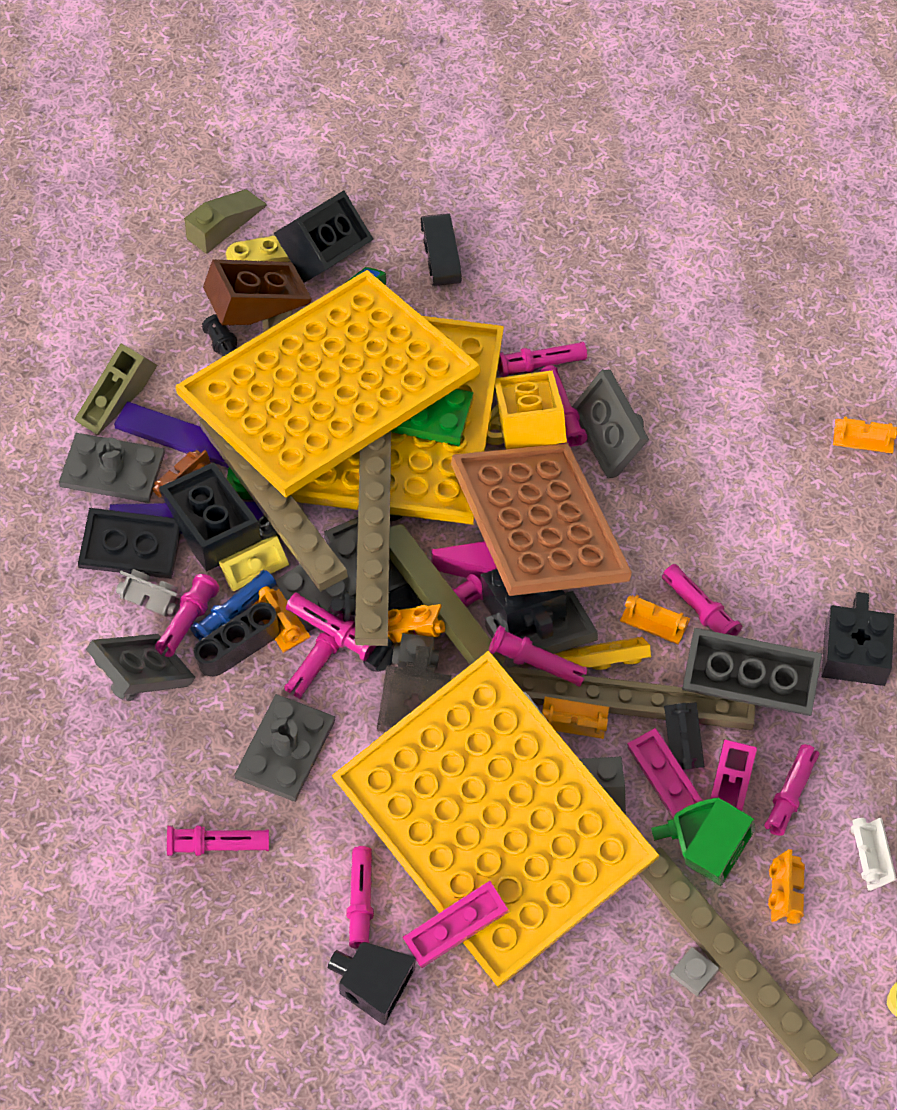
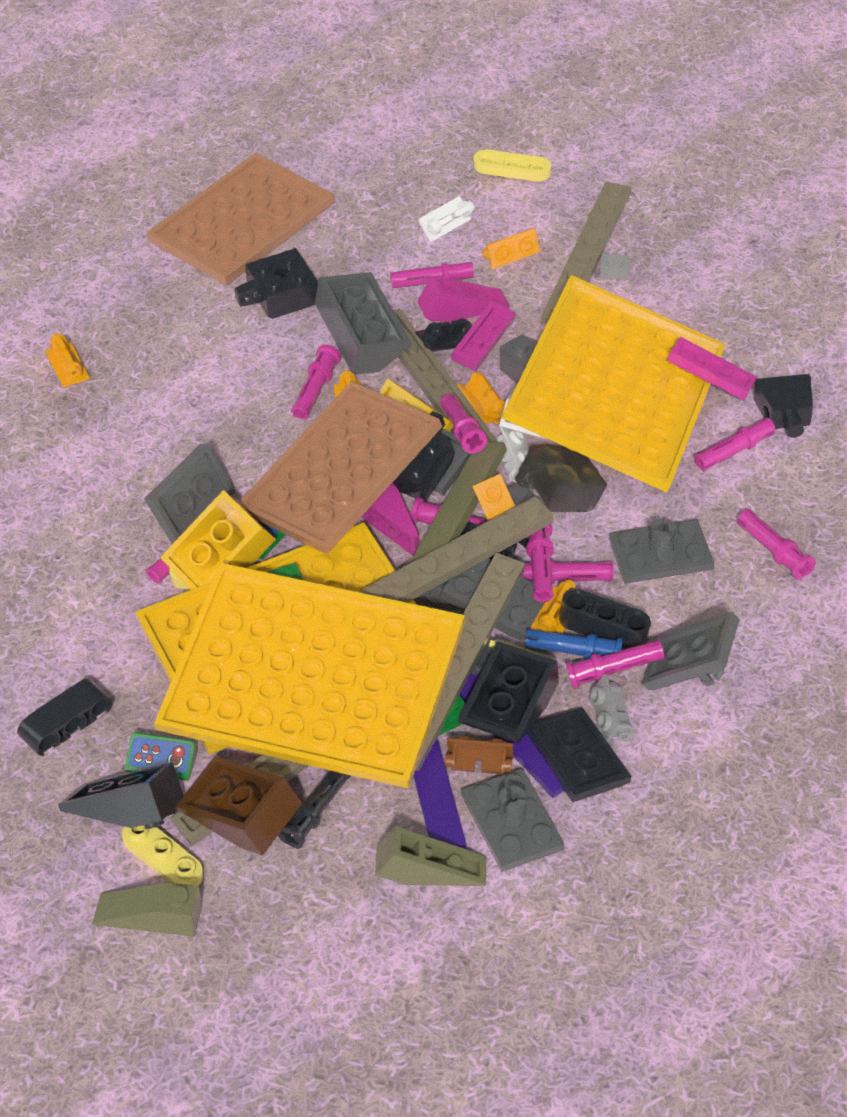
camera: 120 degrees left, 10 degrees down
(346, 606) = (523, 552): black plate -> none
(528, 360) = (149, 590): dark pink pin -> none
(710, 836) = (521, 271): green piece -> none

